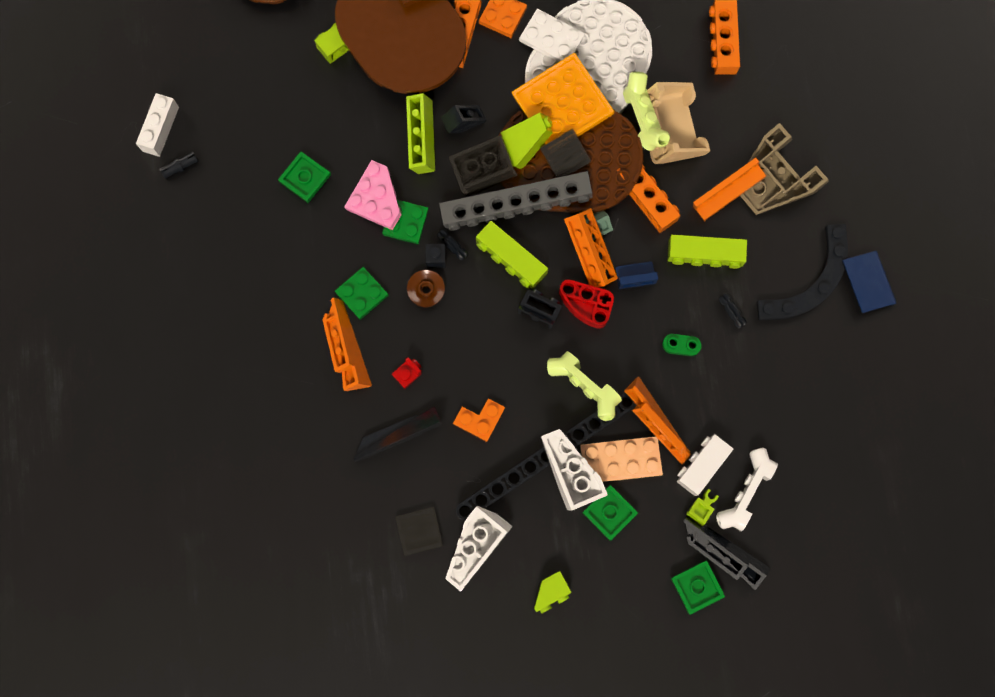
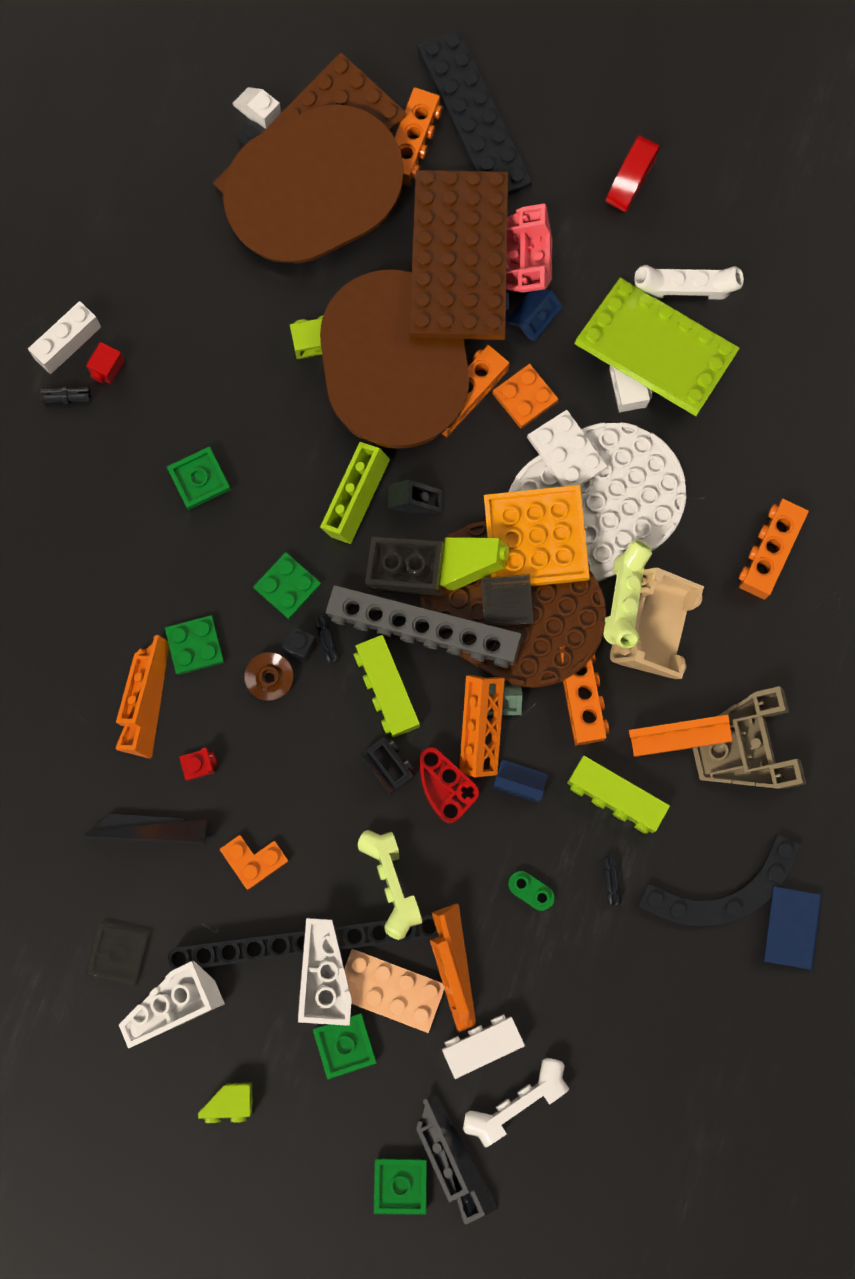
camera: 25 degrees right, 0 degrees up
(196, 129) = (105, 363): none -> red brick
(375, 197) = (267, 541): bright pink plate -> none
(701, 509) = (451, 1096): lime plate -> none

